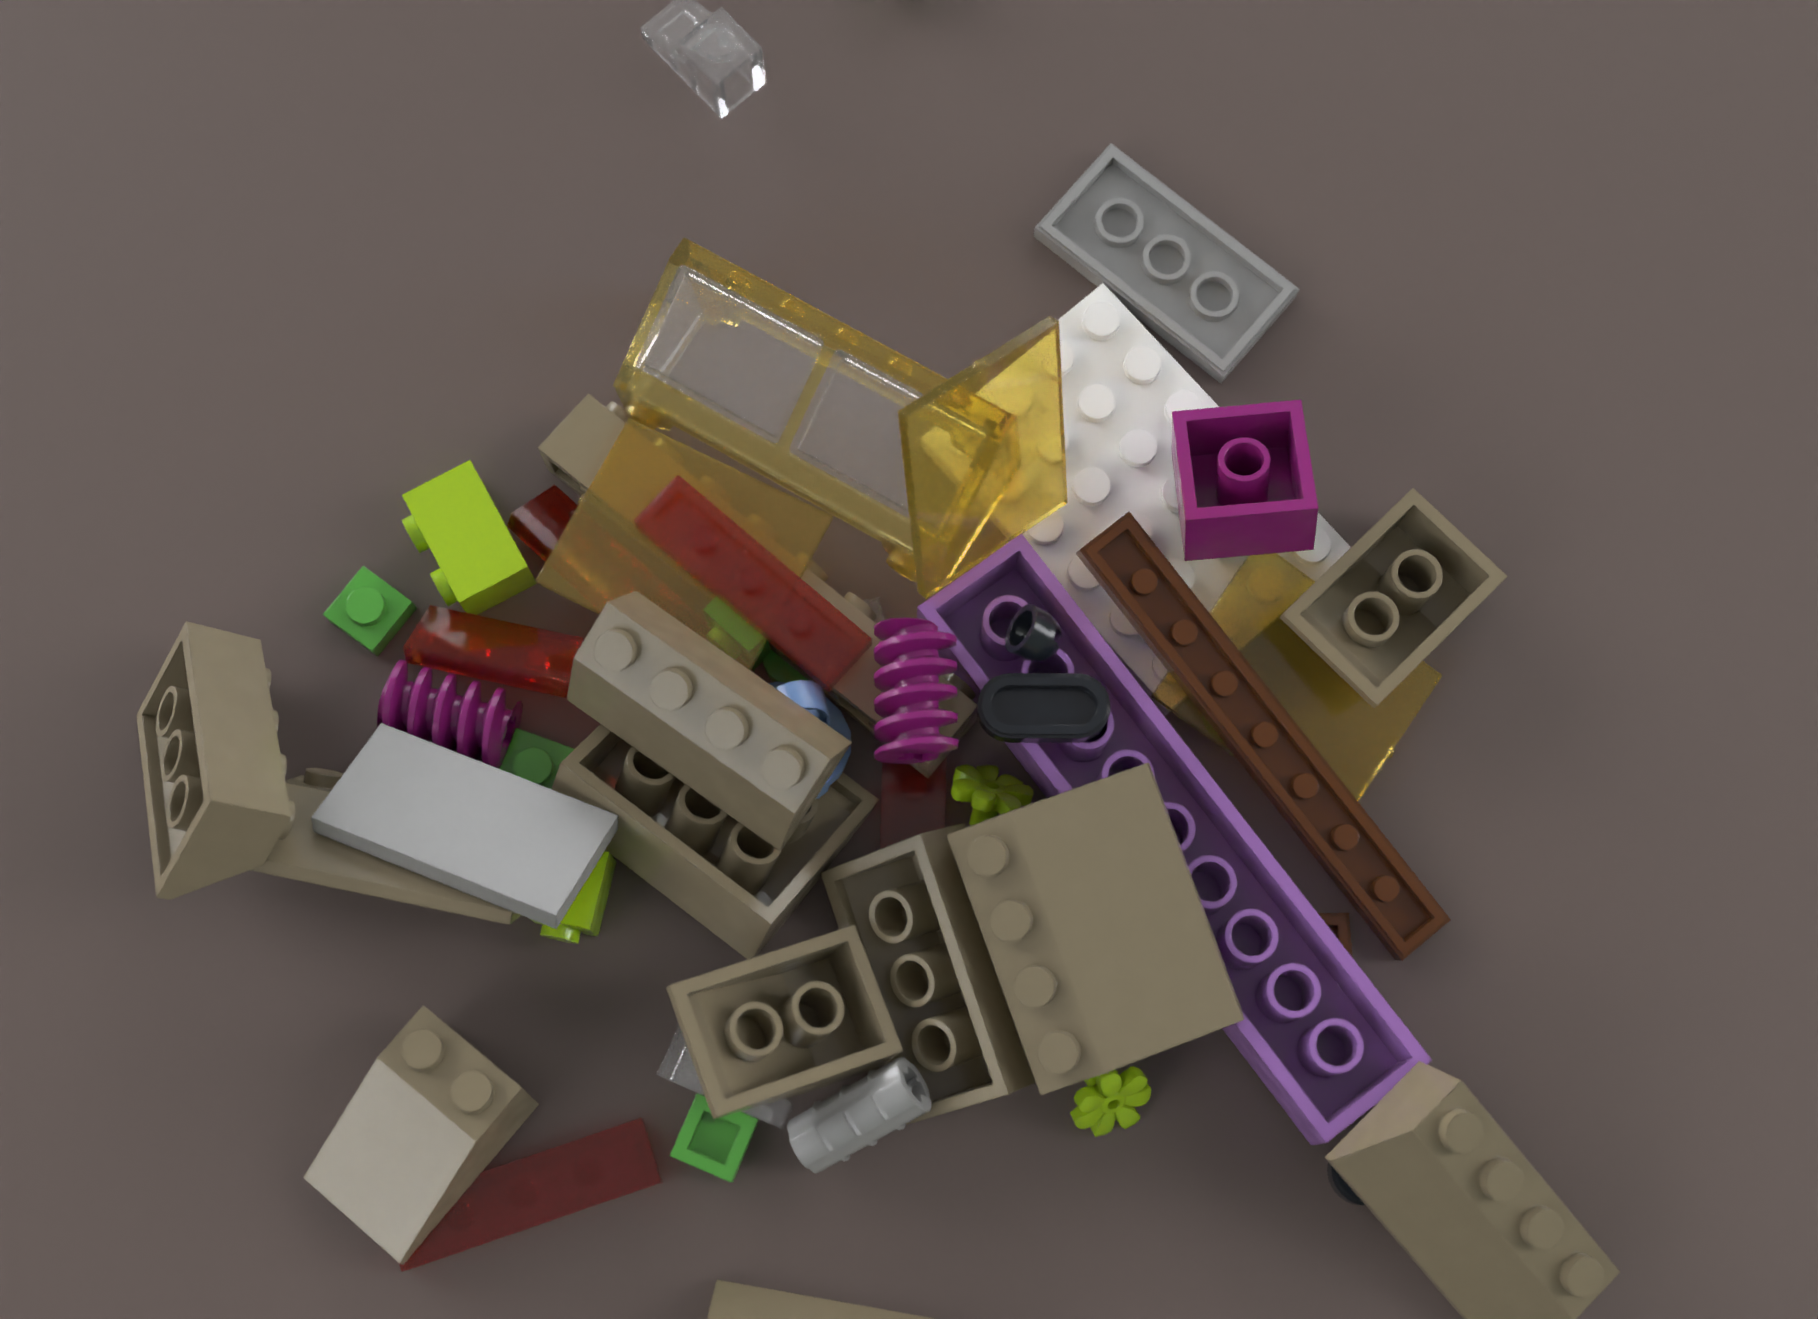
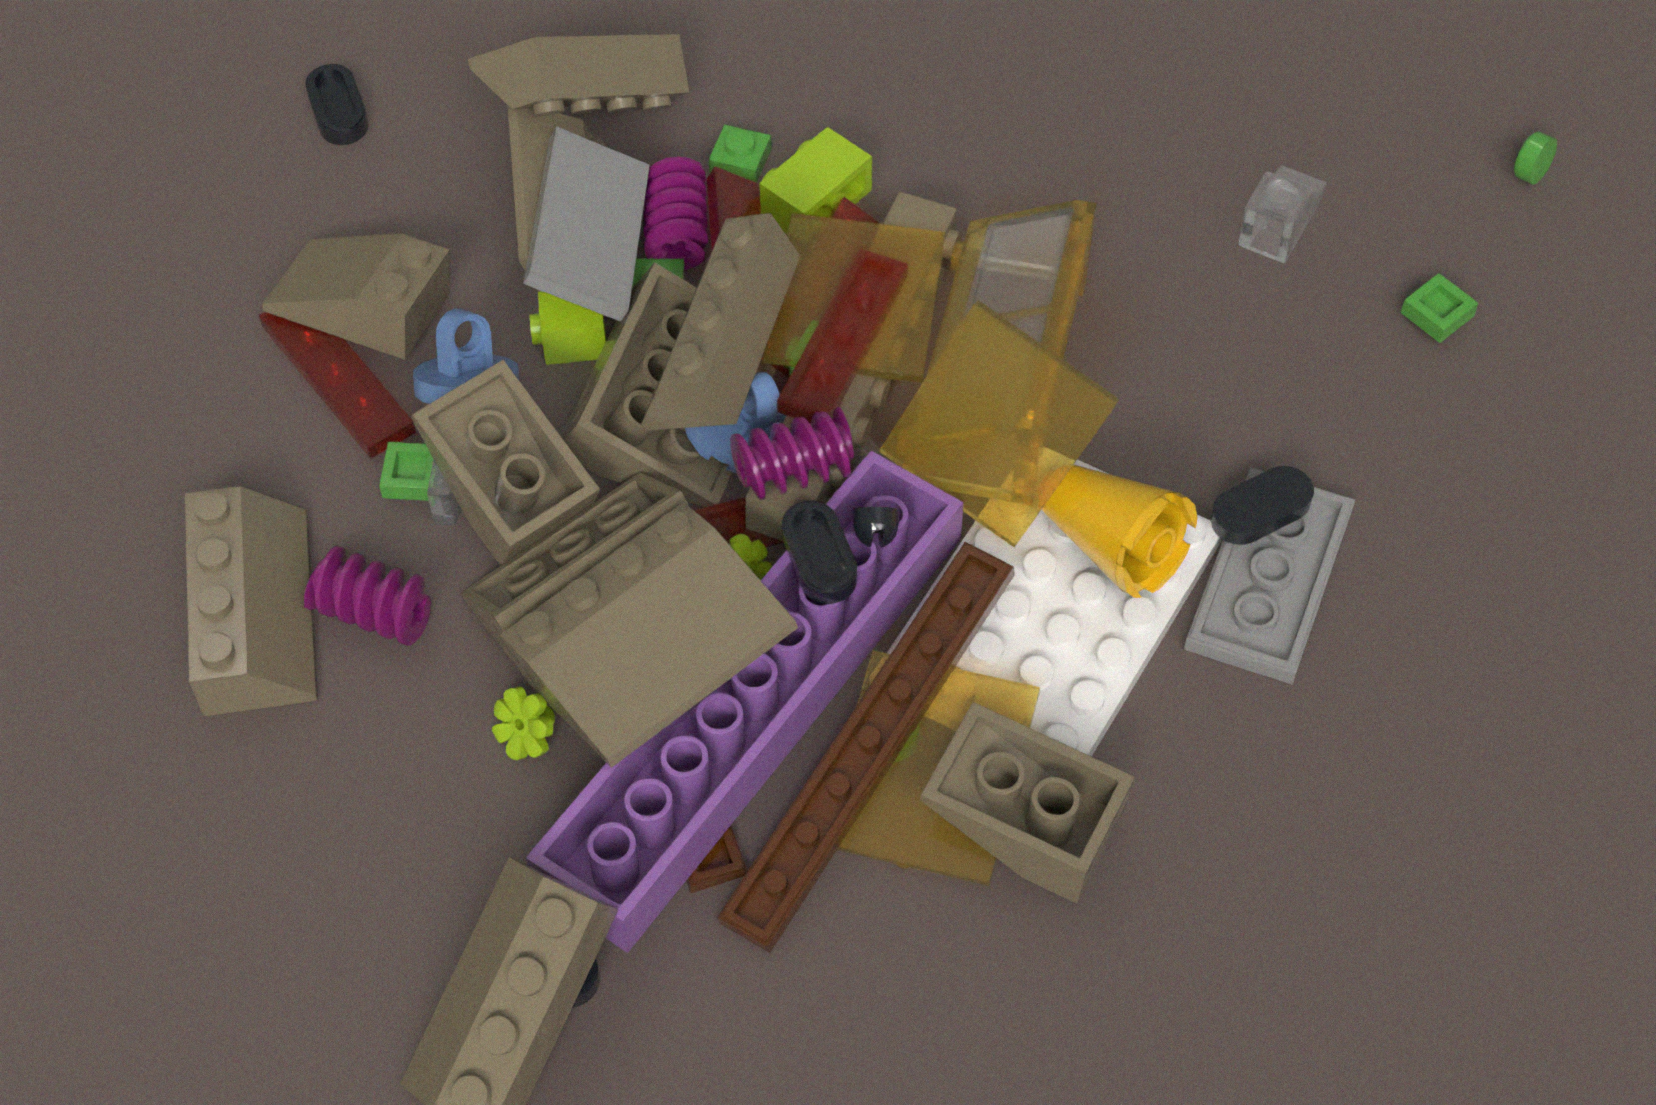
camera: 75 degrees right, 20 degrees down
(71, 1088) = (336, 104): none -> black tile
(611, 1036) = (455, 364): none -> medium blue tile
(859, 1115) = (455, 547): light grey axle -> none
(883, 1233) = (367, 598): none -> magenta piece
(1097, 235) = (1262, 505): none -> black tile
(1115, 380) = (1124, 526): none -> yellow cone
(1244, 480) = (1078, 641): magenta brick -> none

